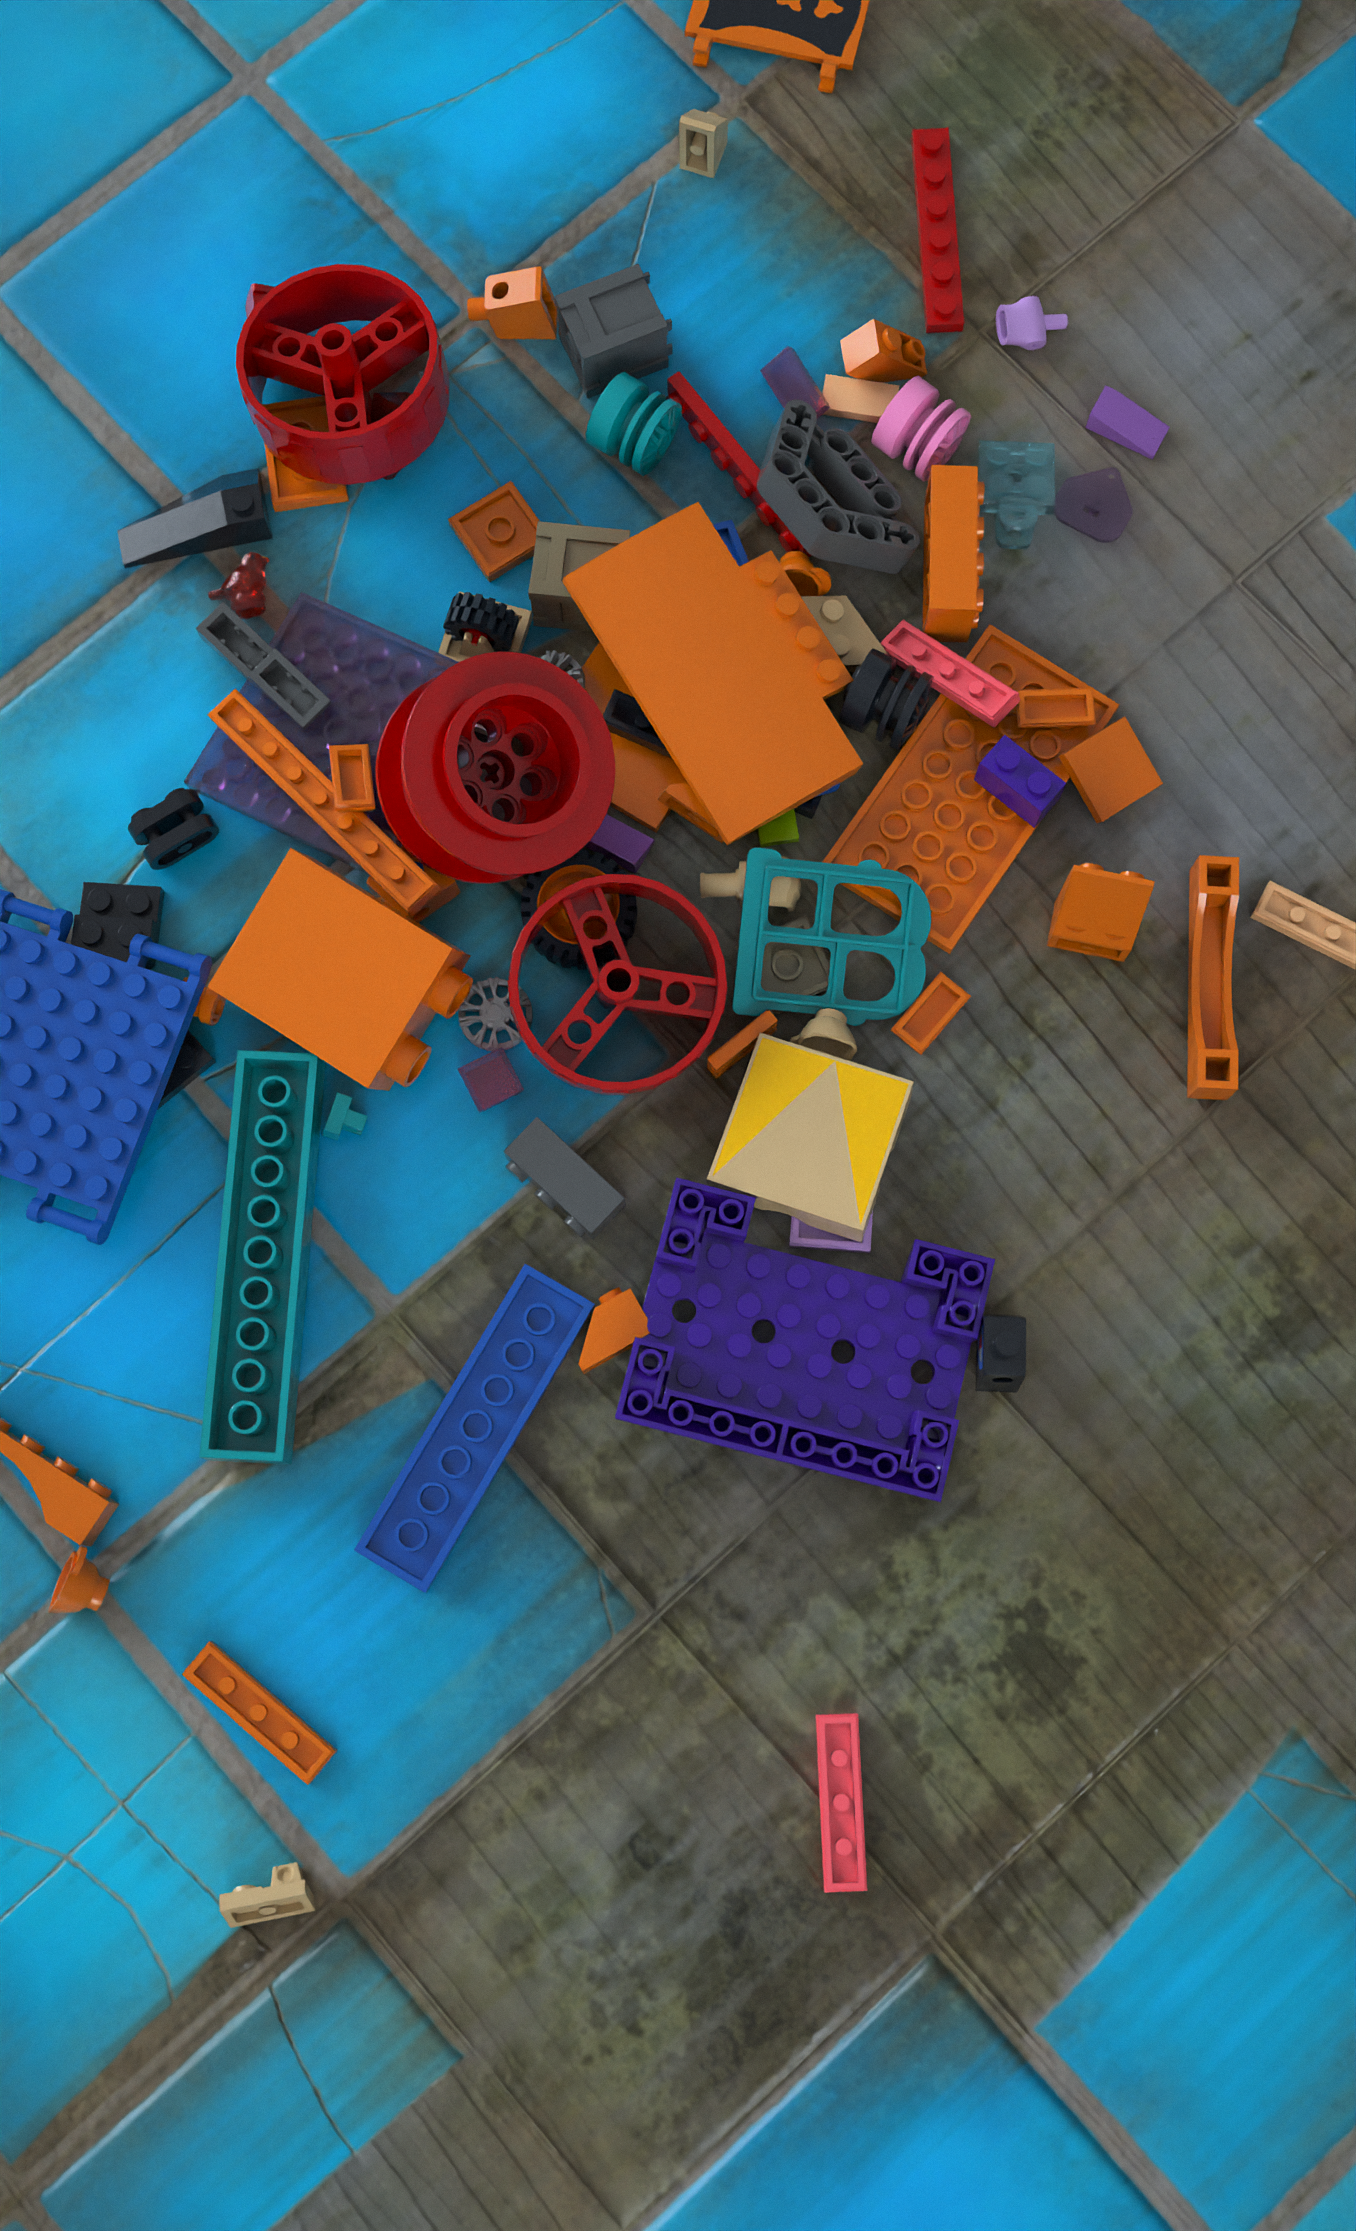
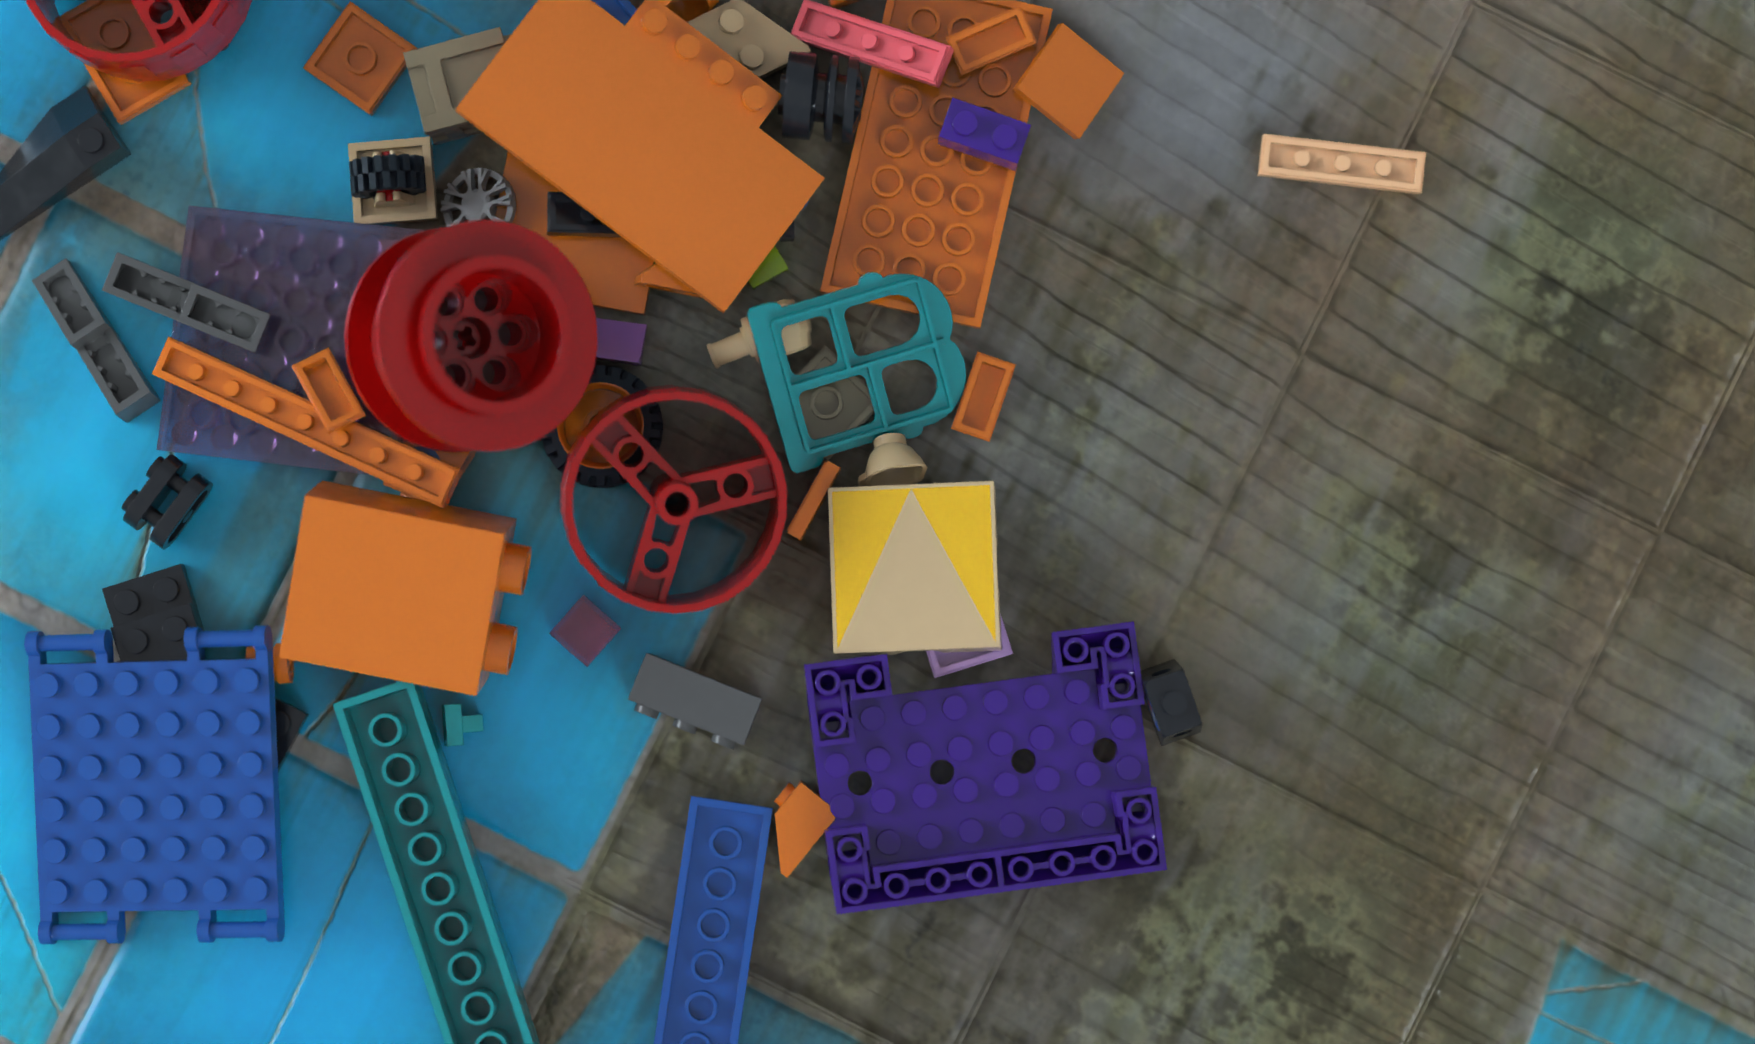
camera: 25 degrees left, 10 degrees up
(173, 677) = (95, 341): none -> dark grey slope
(245, 587) = (129, 221): clear red animal -> none
(493, 1014) = (561, 564): light grey wheel -> none
(1099, 911) = (1109, 241): orange slope -> none
(1211, 1032) = (1240, 258): orange arch -> none

